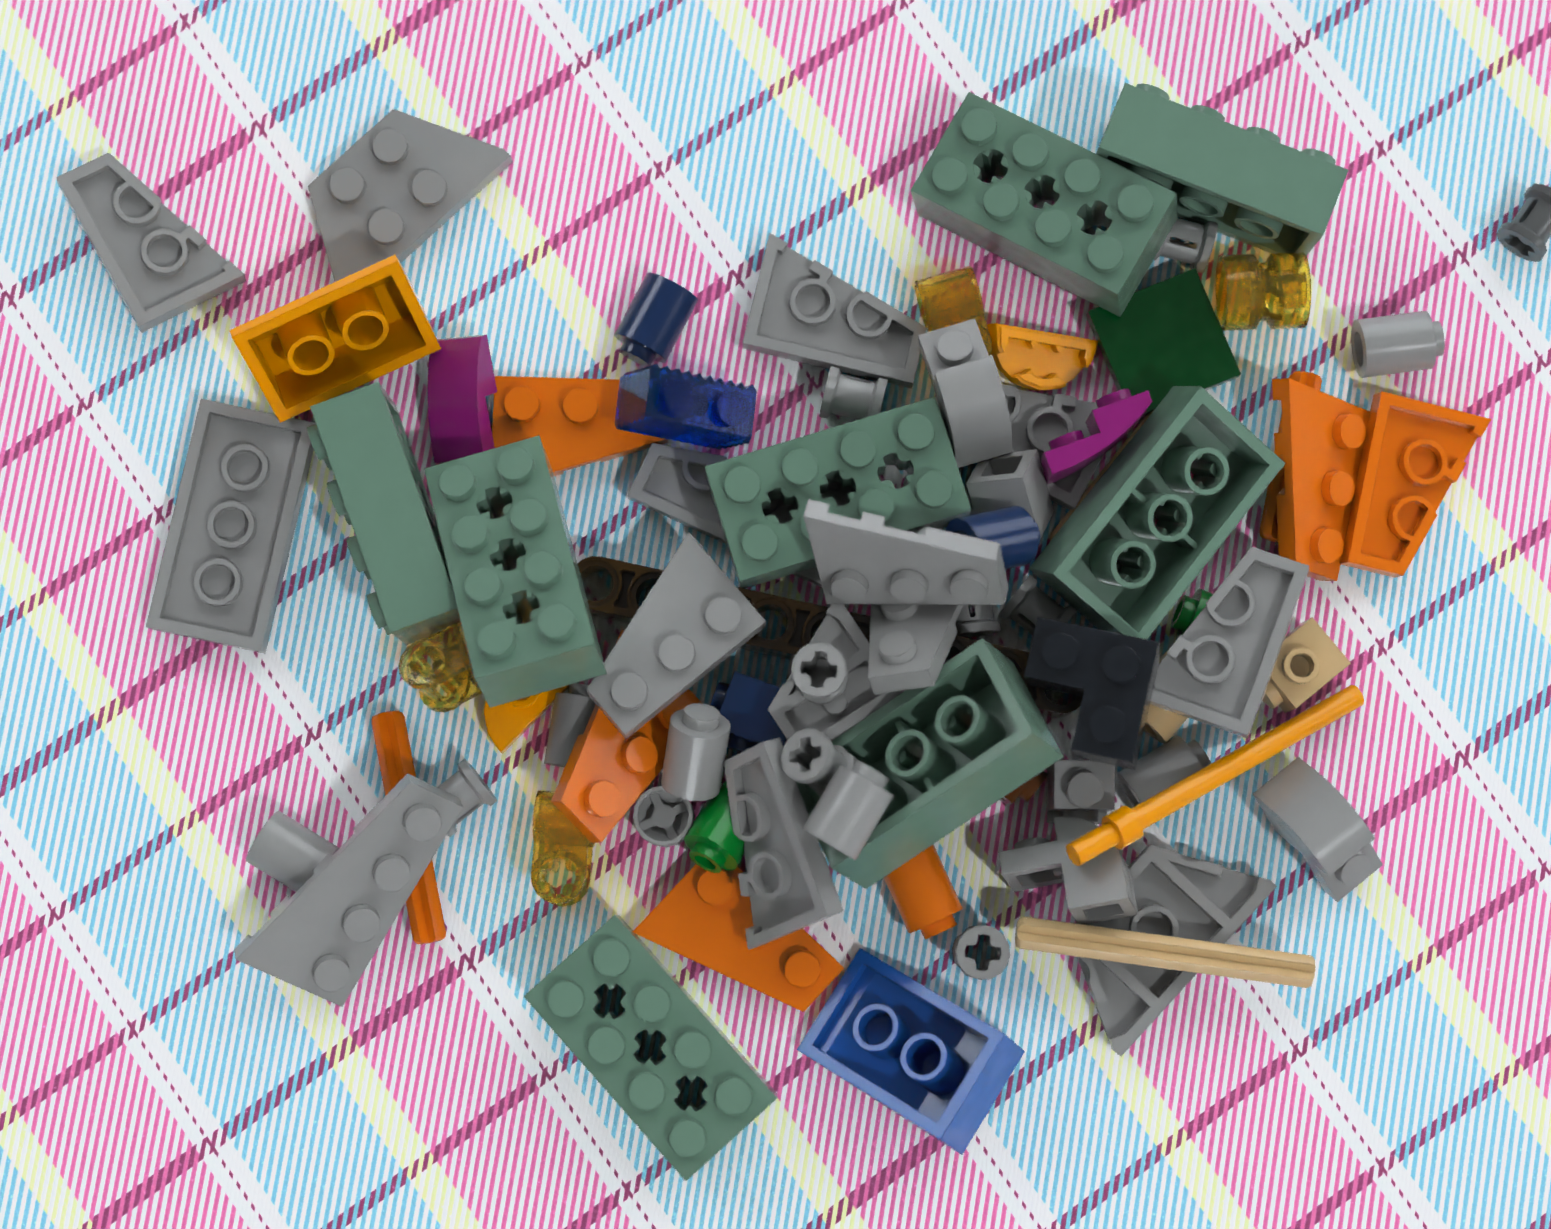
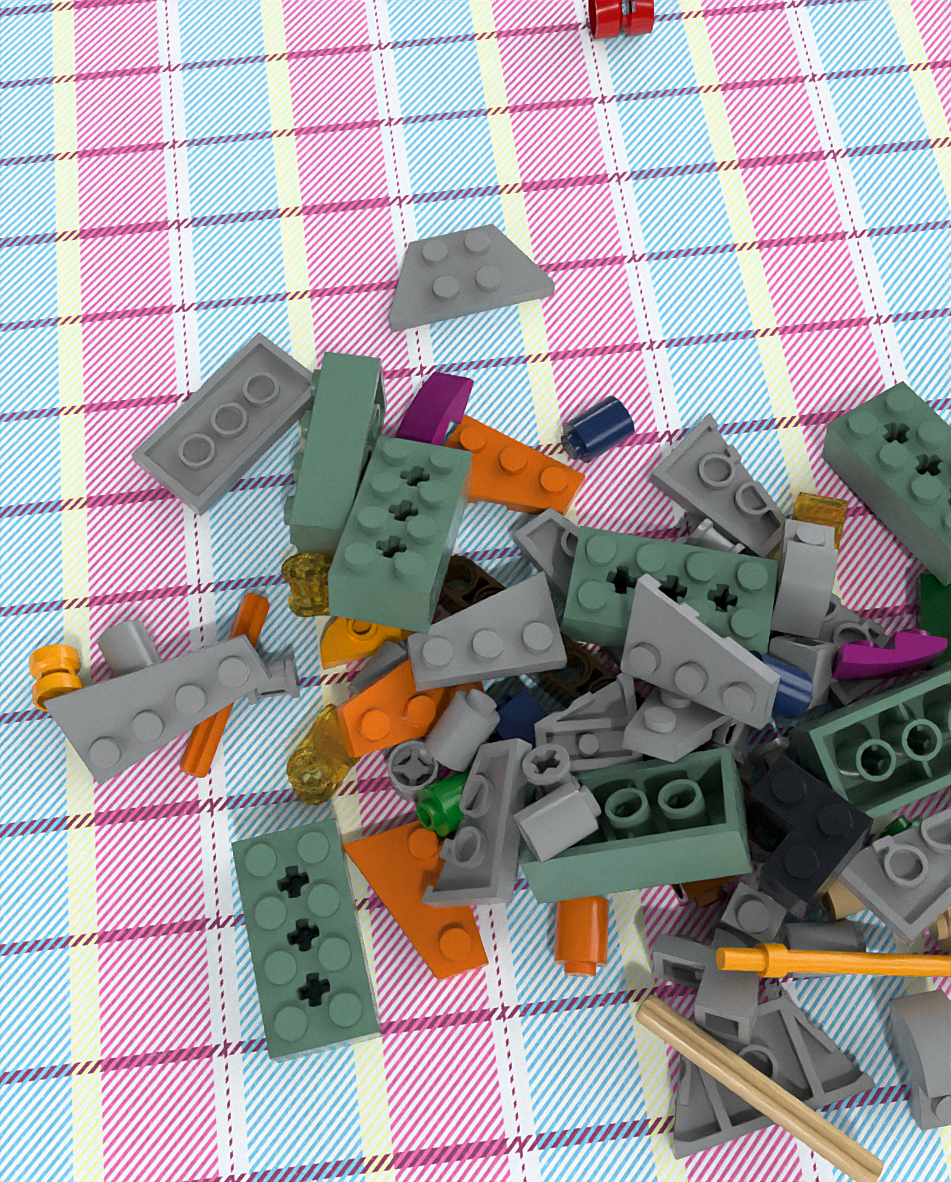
camera: 30 degrees right, 15 degrees down
(145, 248) = (281, 229): light grey wing -> none
(222, 919) = (55, 672): none -> light orange wheel
(336, 338) = (372, 320): light orange slope -> none
(685, 407) = (587, 488): clear blue brick -> none
(807, 659) = (583, 697): light grey bush -> none
(911, 1050) = (509, 1061): blue slope -> none
(991, 967) = (620, 1006): light grey bush -> none
(1039, 357) = (867, 587): light orange plate -> none

